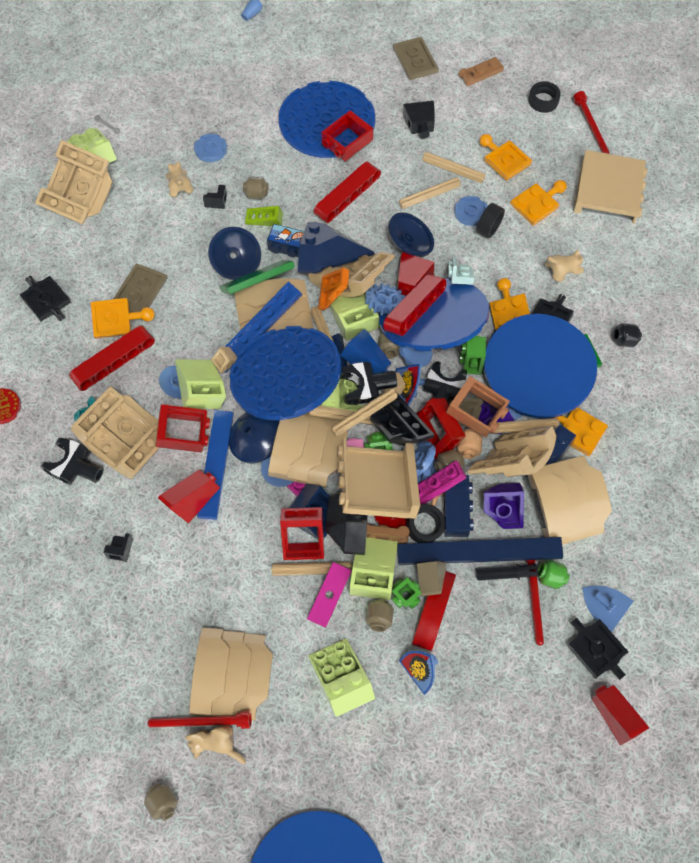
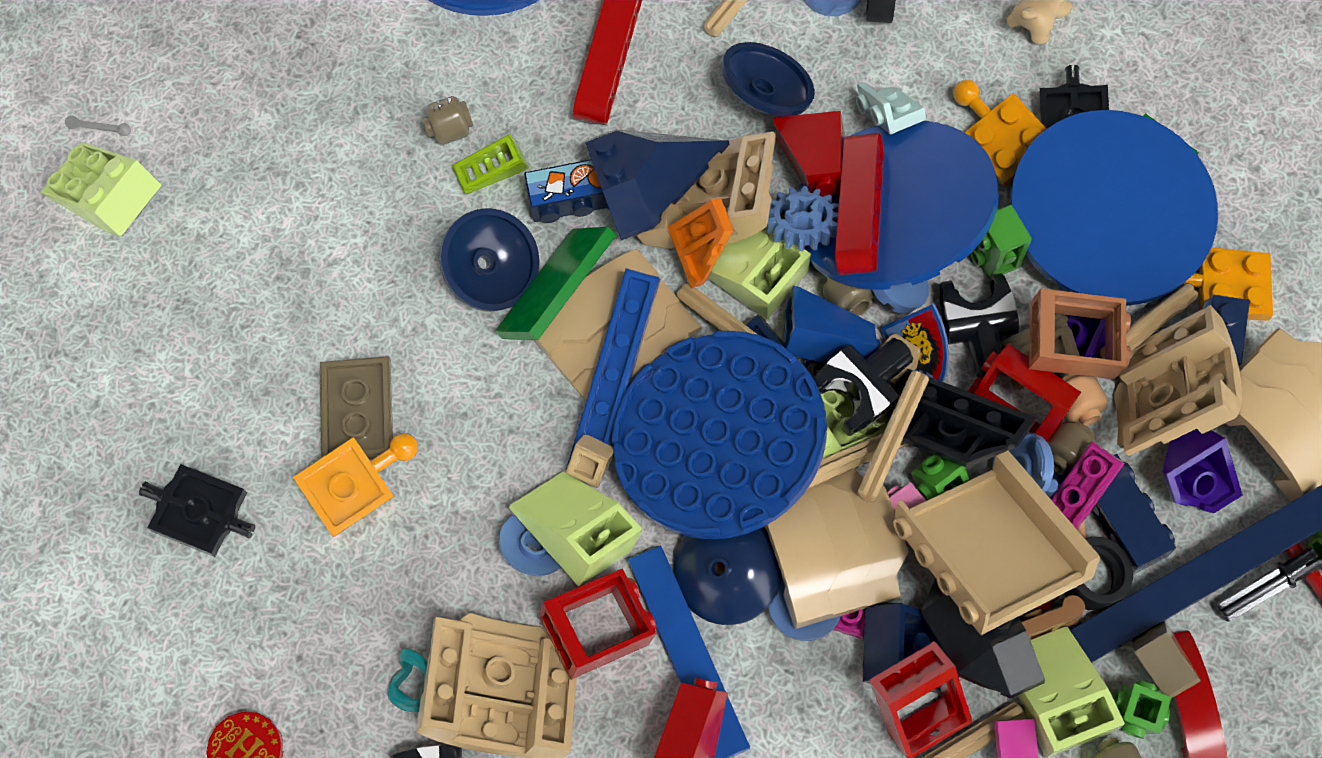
camera: 25 degrees left, 5 degrees up
(77, 184) = (122, 269): tan slope -> none
(111, 358) = (389, 559): red beam -> none
(178, 180) = (298, 171): tan animal -> none
(210, 148) = (318, 92): medium blue tile -> none
(216, 200) = (387, 174): black panel -> none
(627, 335) = (1209, 84): black head -> none

